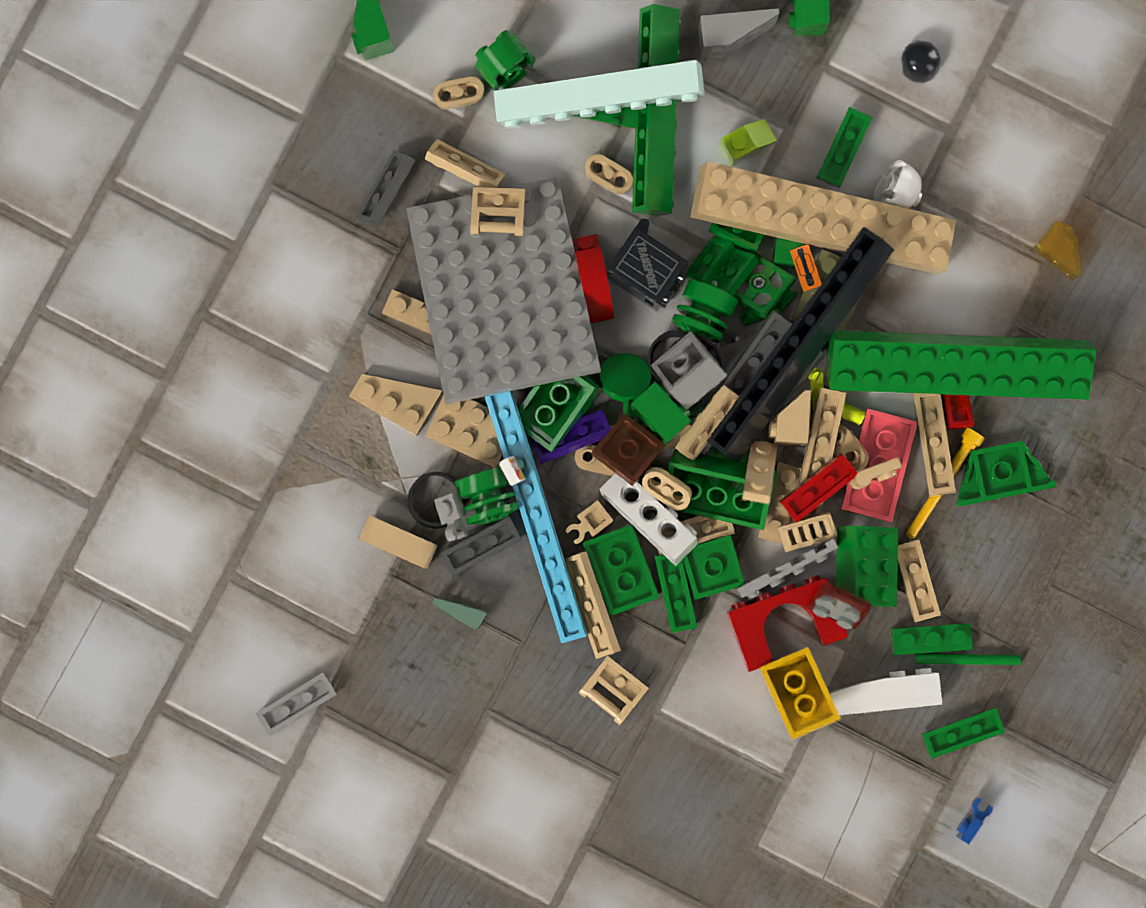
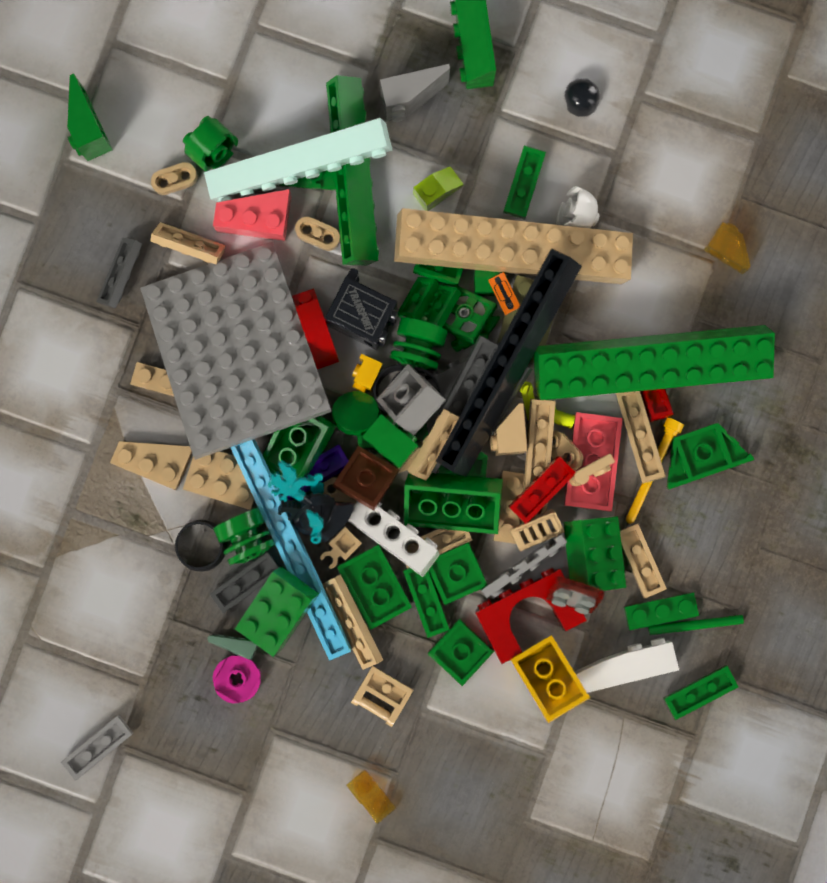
camera: 10 degrees left, 0 degrees up
(397, 542) = (170, 588): tan beam -> none
(451, 513) = (214, 556): light grey plate -> none
(460, 664) = (223, 682): none -> dark pink plate
(498, 203) = (220, 272): tan plate -> none
(512, 470) = (263, 511): white tile -> none
(512, 581) = (277, 611): none -> green brick
(543, 146) = (255, 215): none -> coral wedge
(570, 479) = (315, 513): none -> helmet
(587, 797) = (371, 796): none -> clear yellow slope
(642, 336) = (366, 373): none -> yellow brick
(666, 487) = (404, 509): tan plate -> none
(705, 654) = (460, 652): none -> green tile
(760, 471) = (487, 483): tan plate -> none
(969, 827) = (718, 777): blue plate -> none

